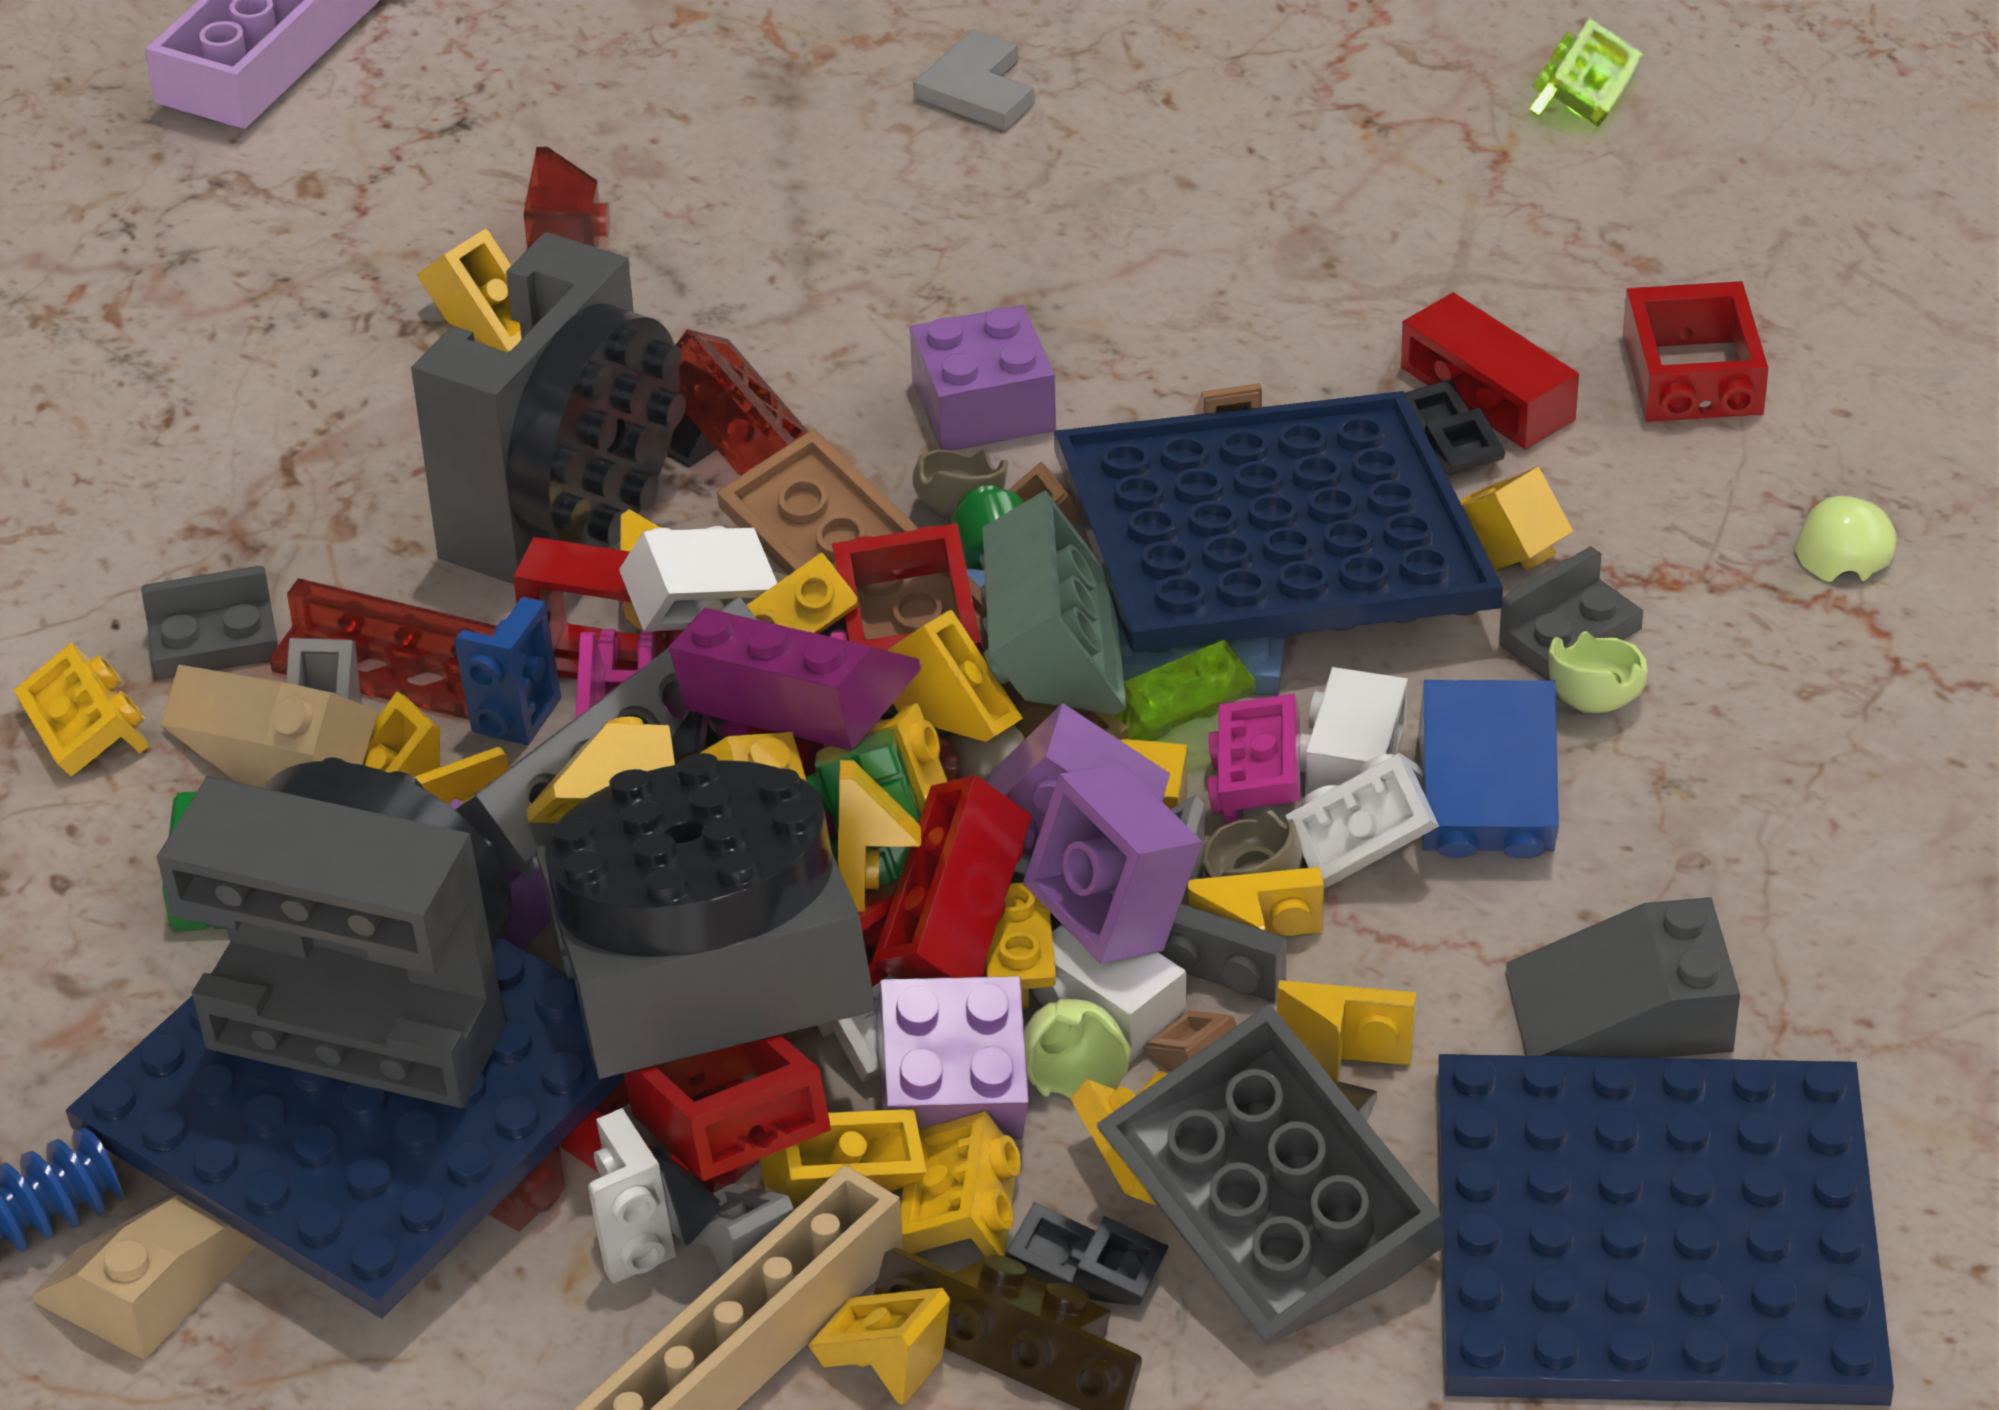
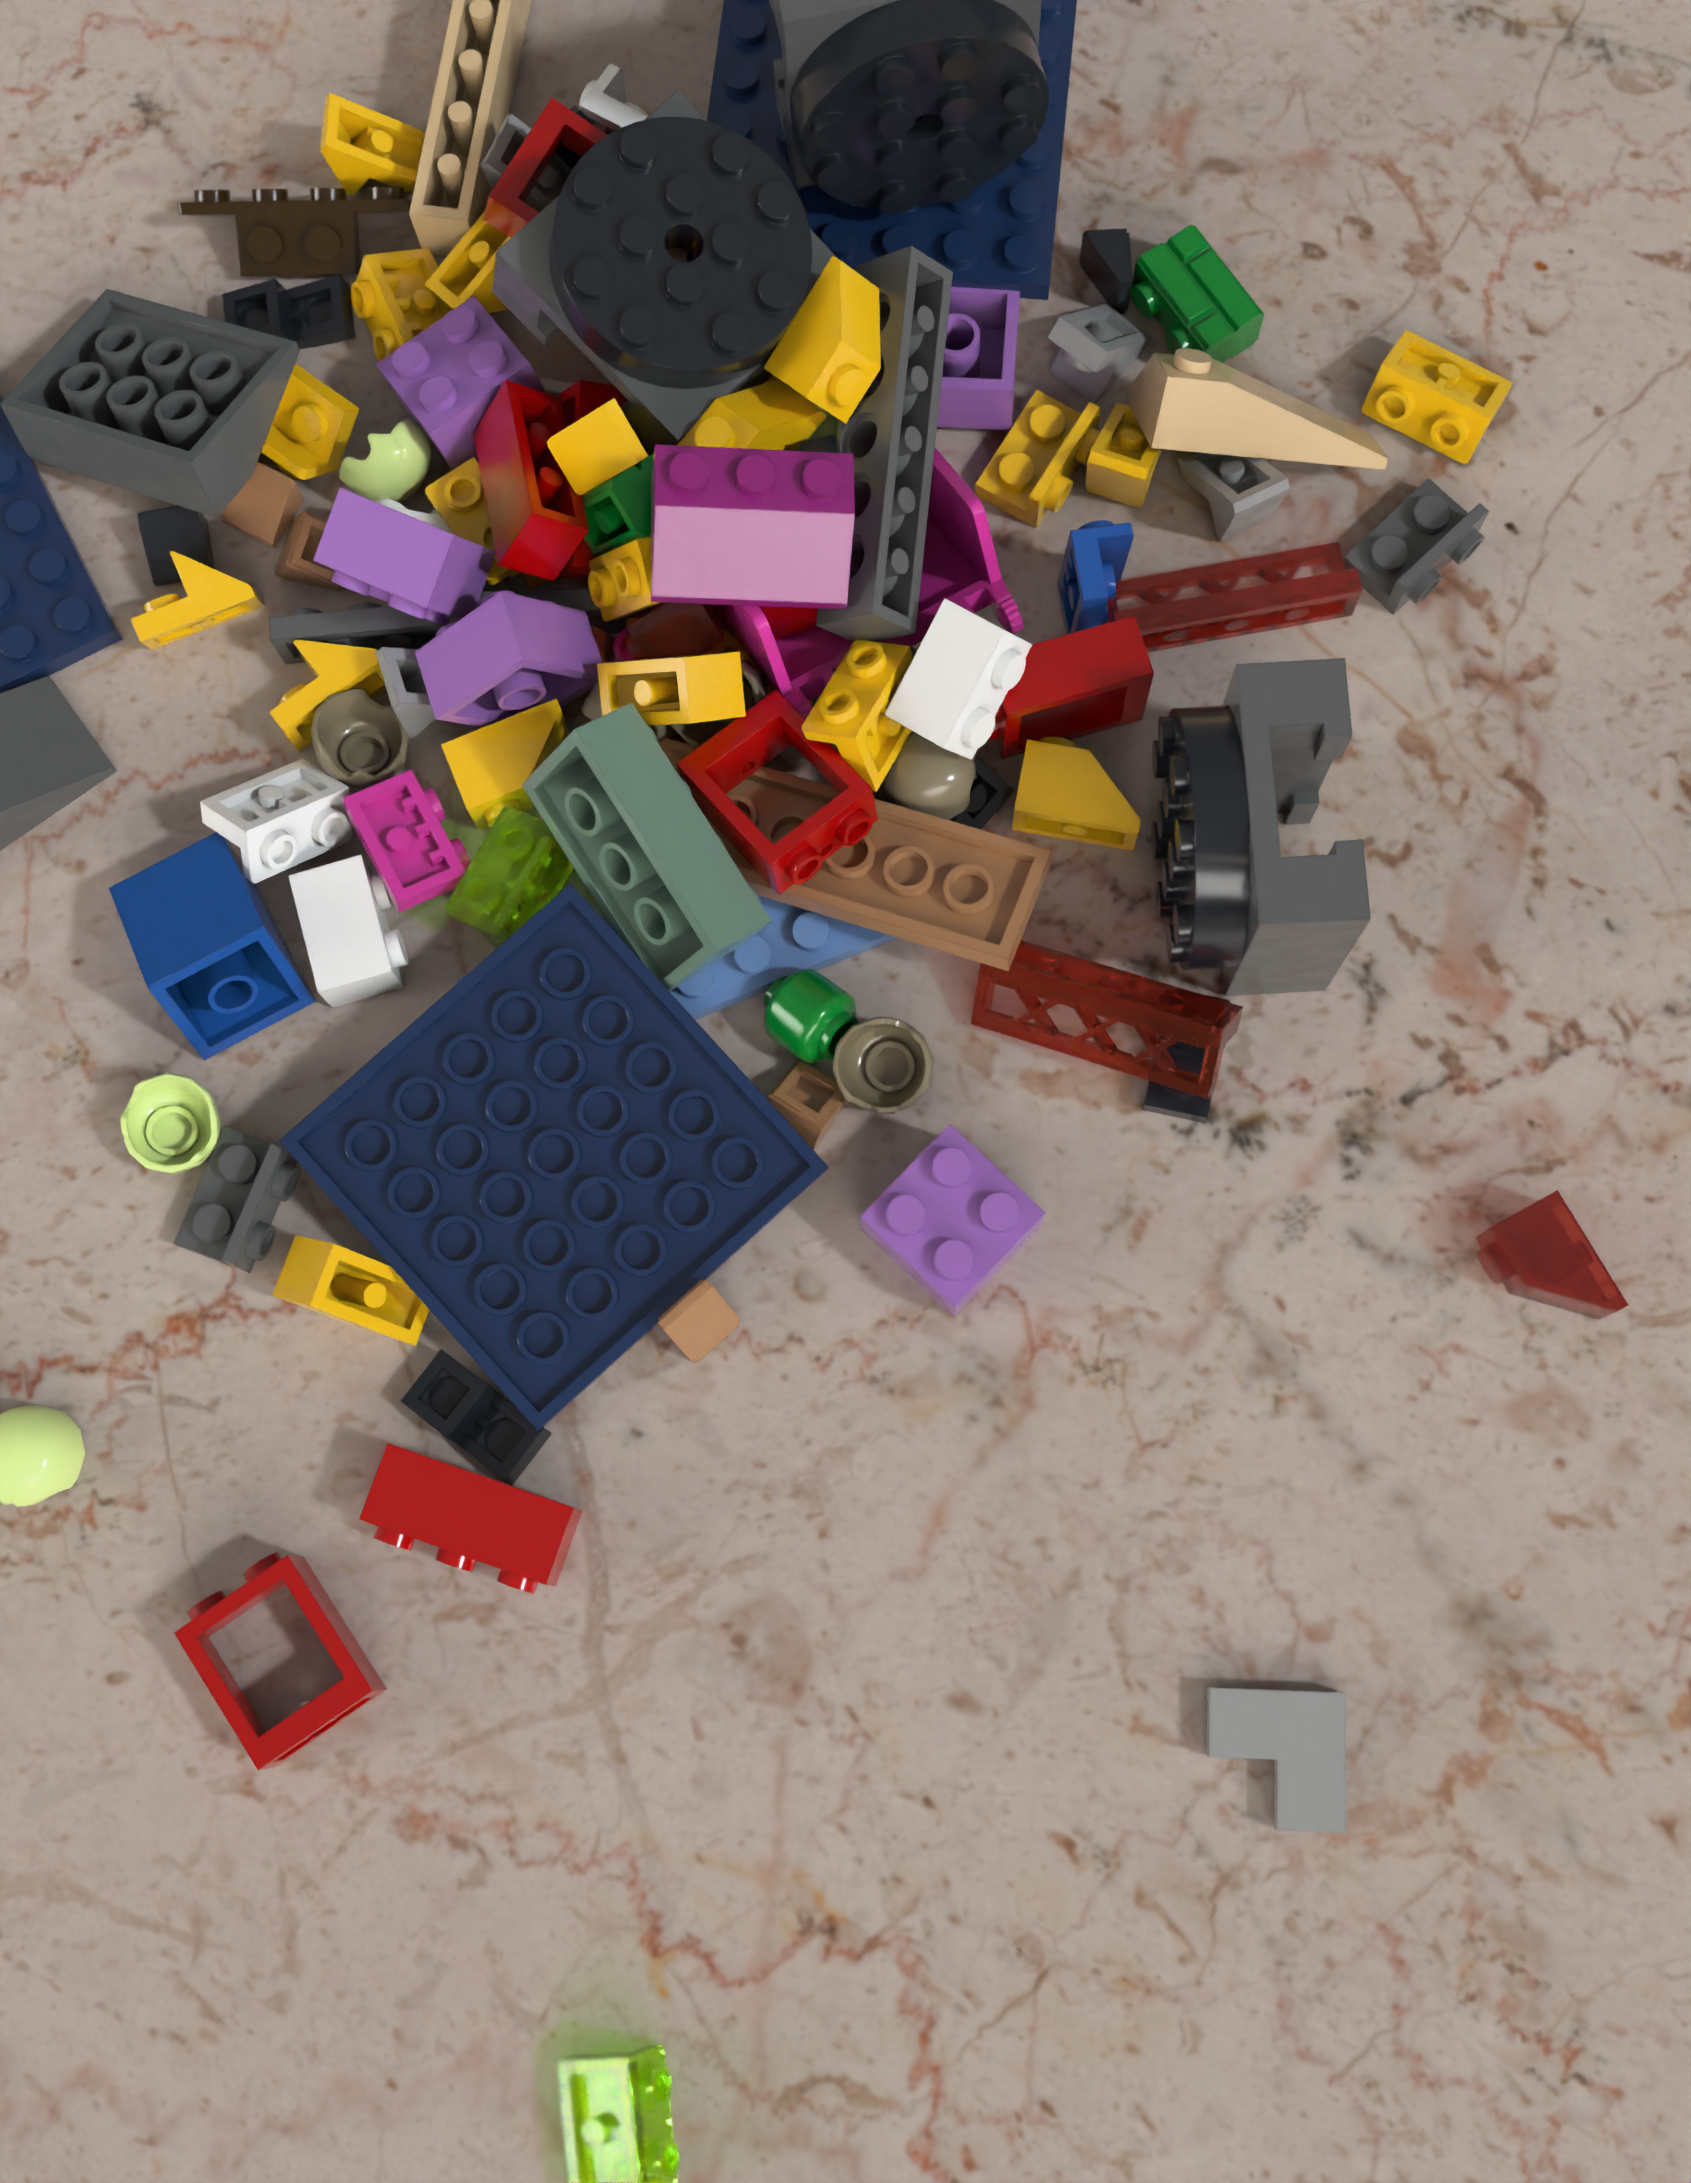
camera: 155 degrees right, 35 degrees up
(473, 291) = (1521, 1081): yellow slope -> none

